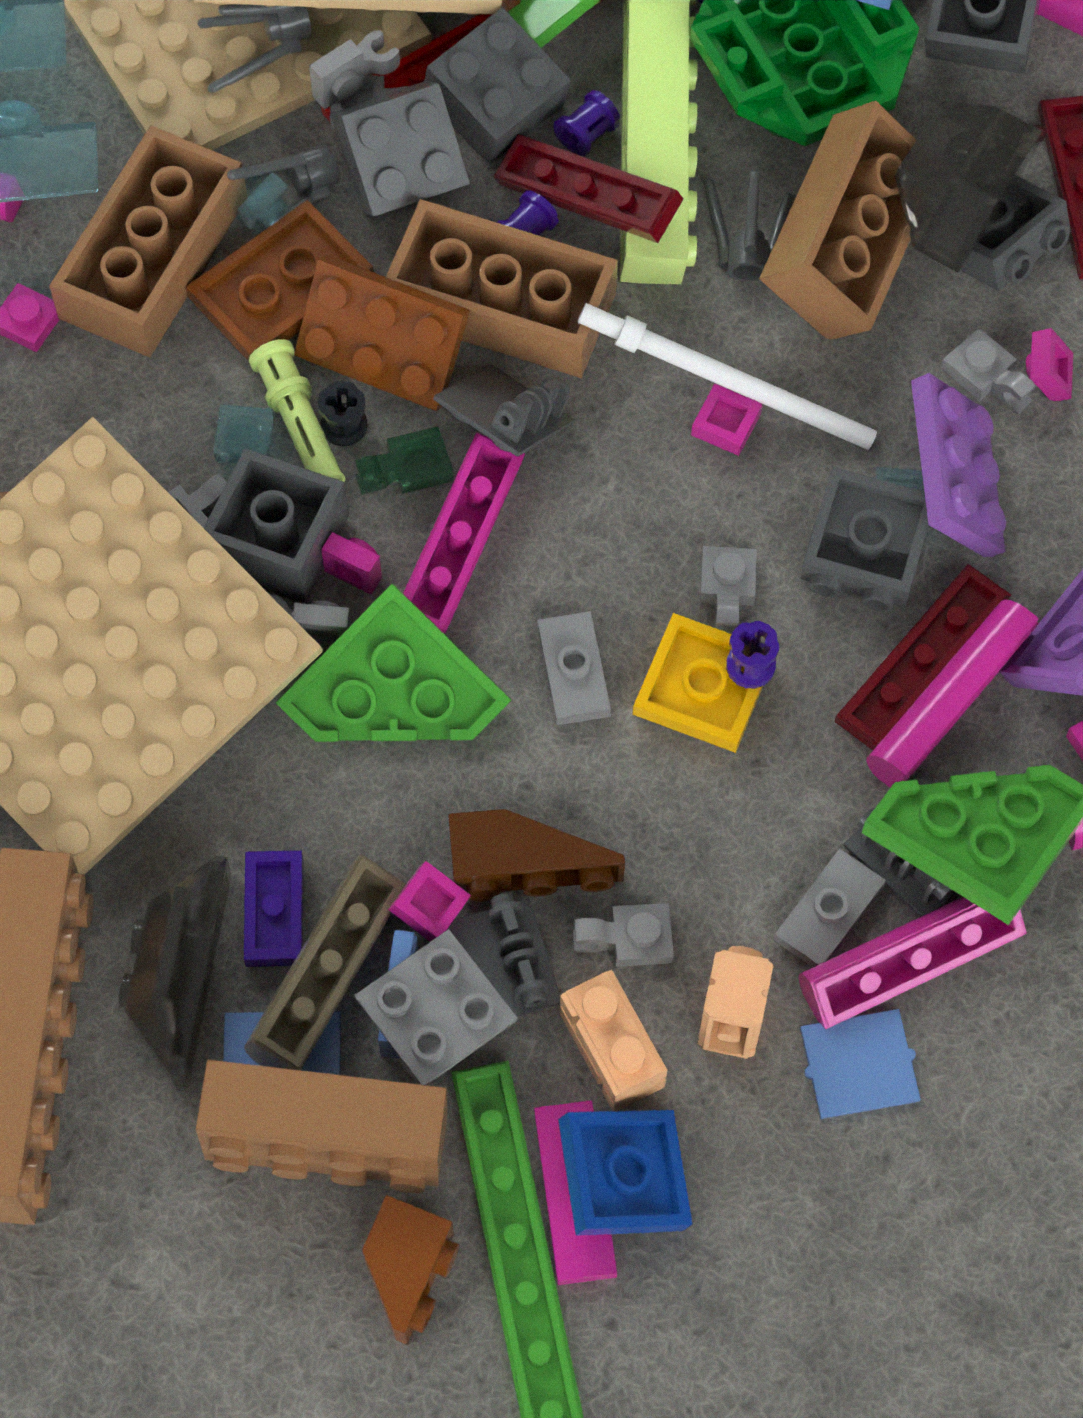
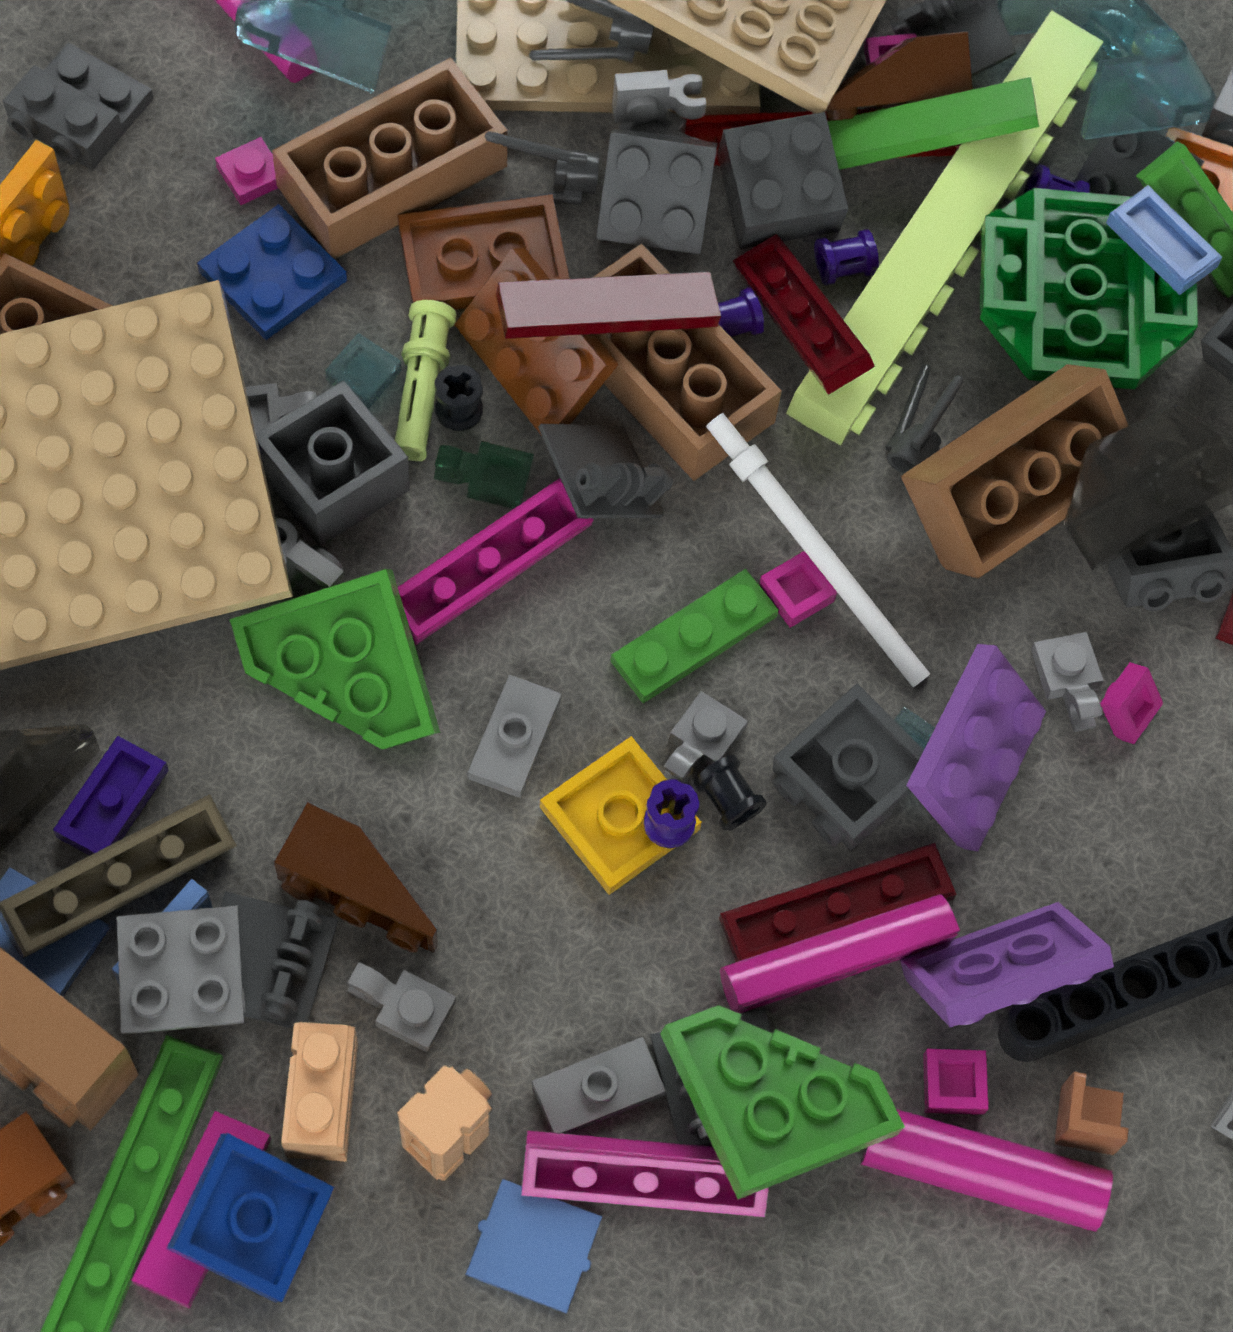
camera: 25 degrees right, 0 degrees up
(107, 383) = (272, 271): none -> blue plate
(264, 203) = (512, 177): clear light blue plate -> none
(352, 562) = (380, 532): dark pink plate -> none
(429, 902) = (242, 871): dark pink plate -> none
(432, 264) = (607, 305): none -> tile
(666, 505) = (694, 636): none -> bright green plate
(783, 614) = (729, 792): none -> black bush

